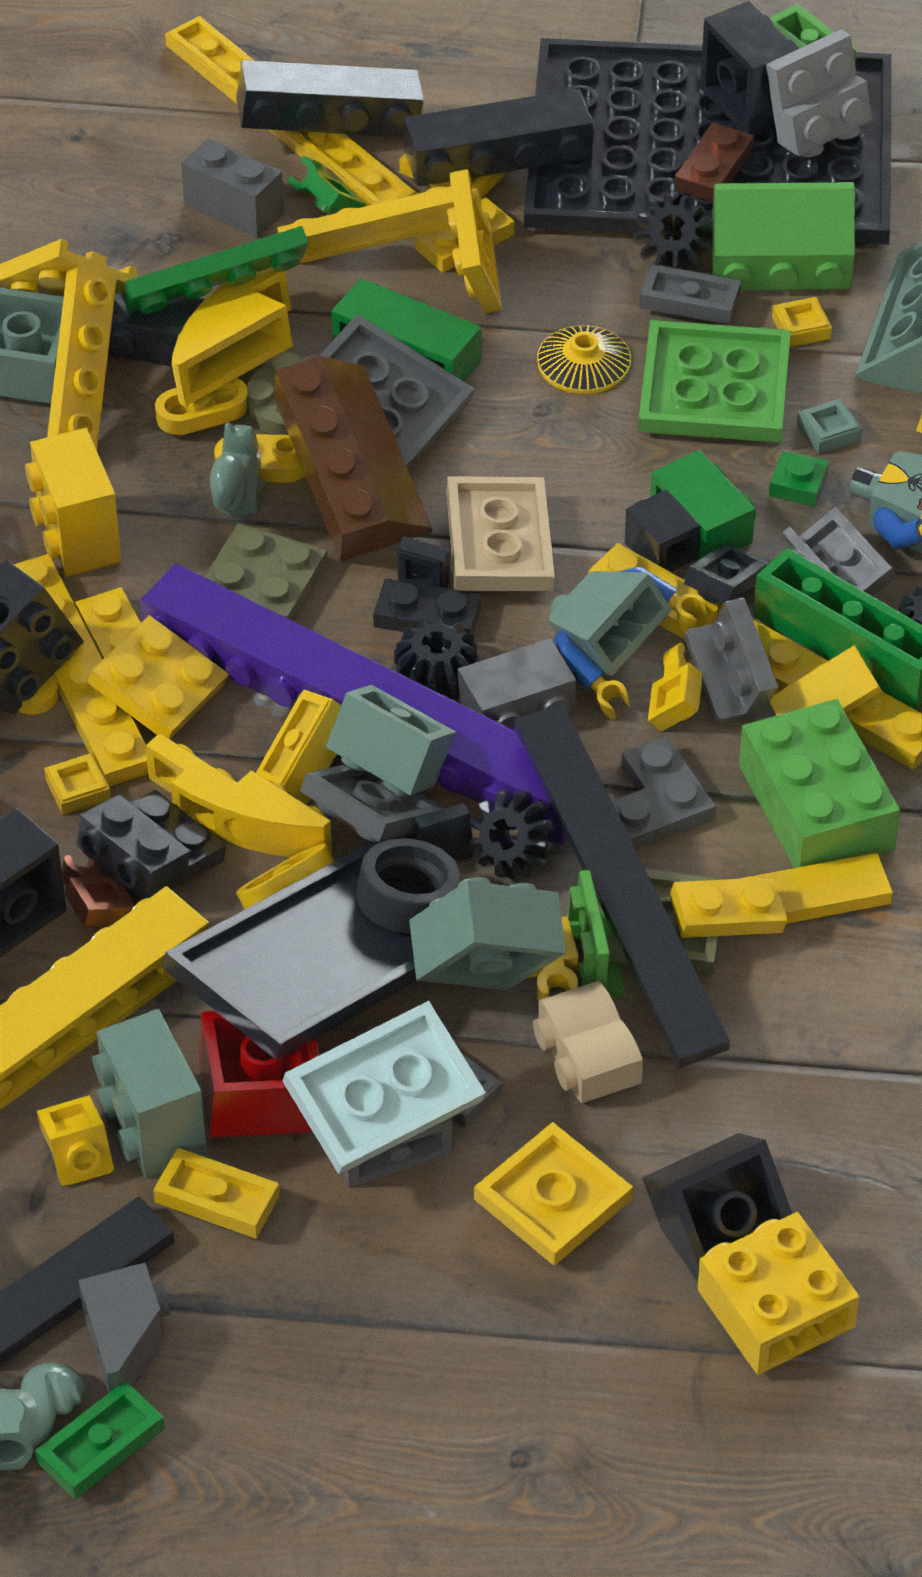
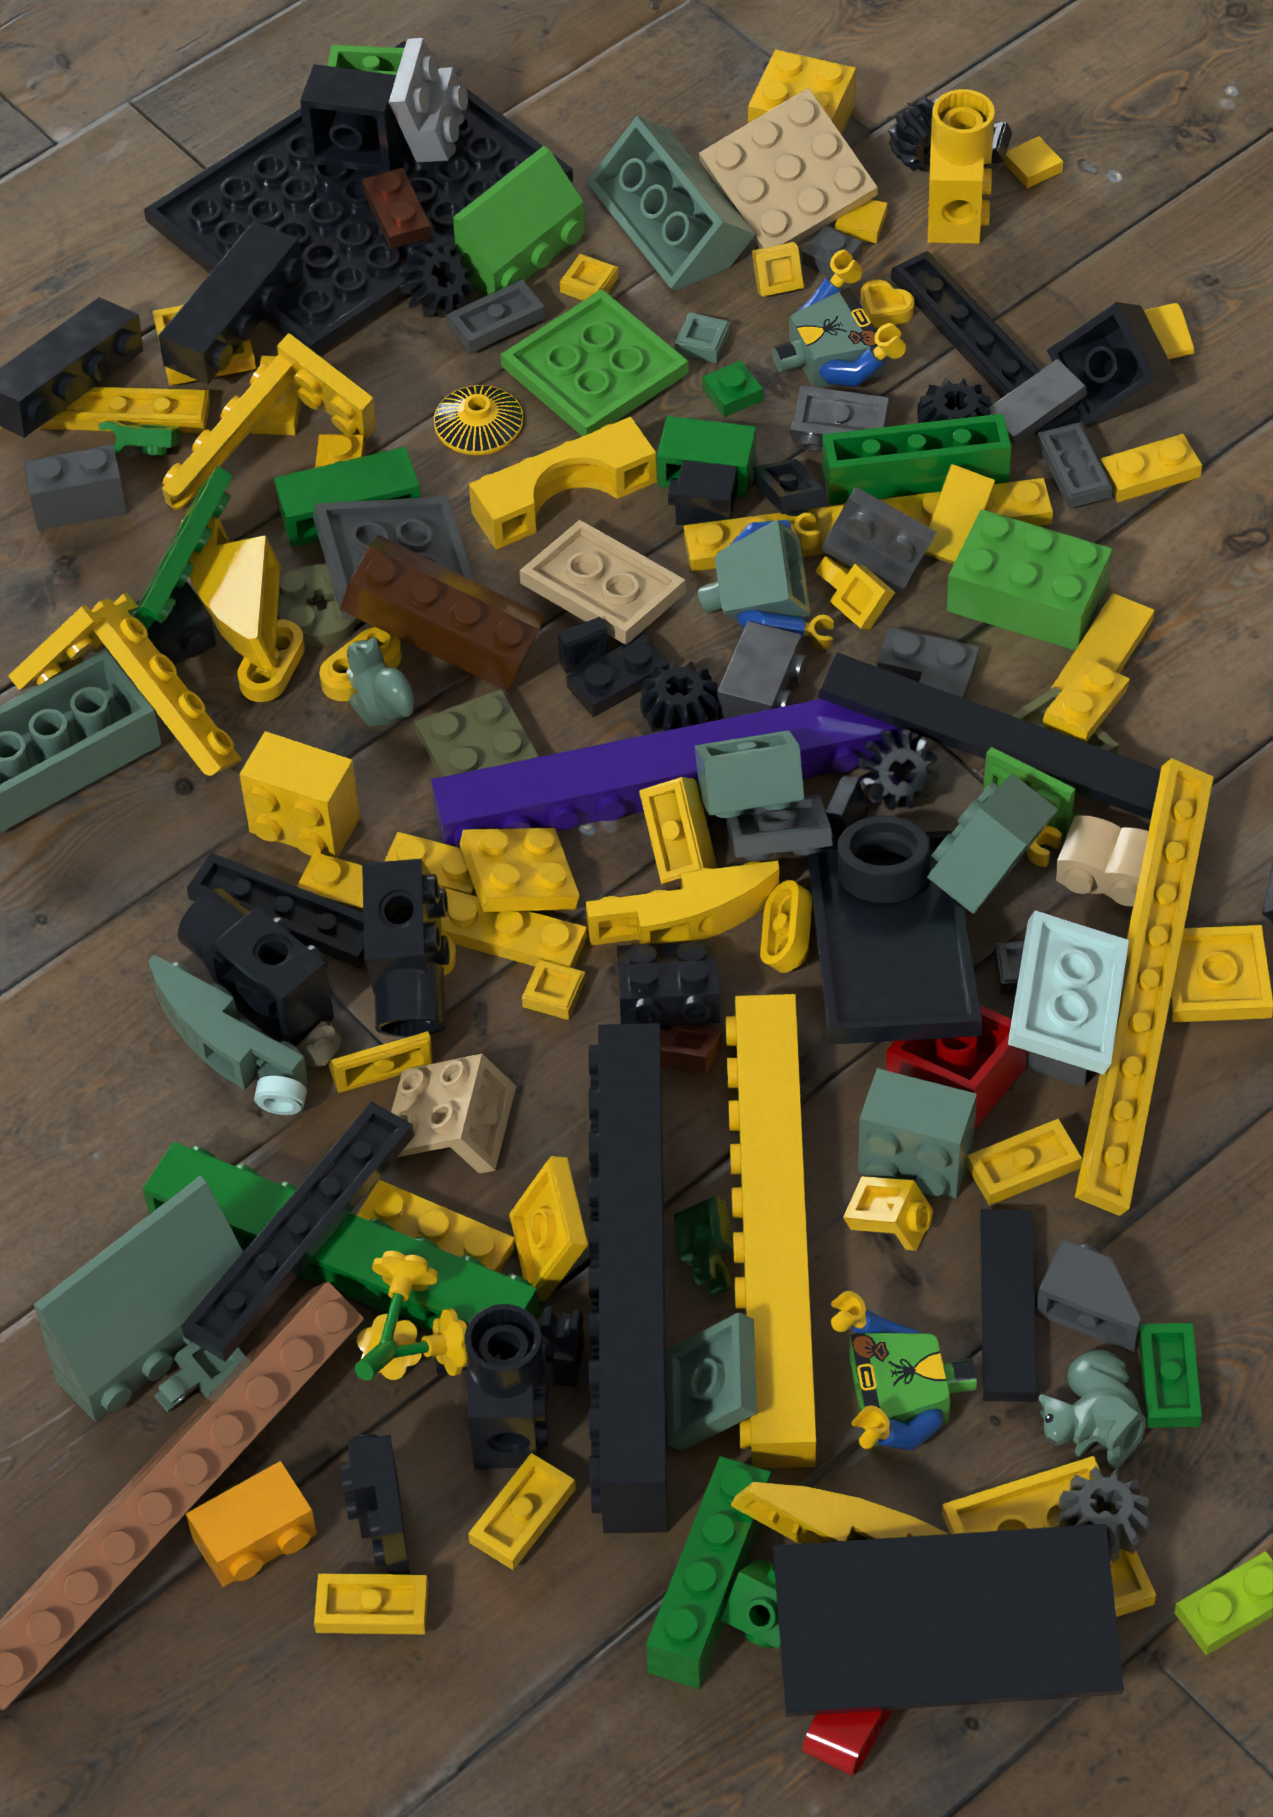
camera: 45 degrees left, 5 degrees up
(452, 300) = (338, 447): none -> yellow plate
(469, 1144) = (1149, 974): none -> yellow plate
(519, 427) = (609, 460): none -> yellow arch

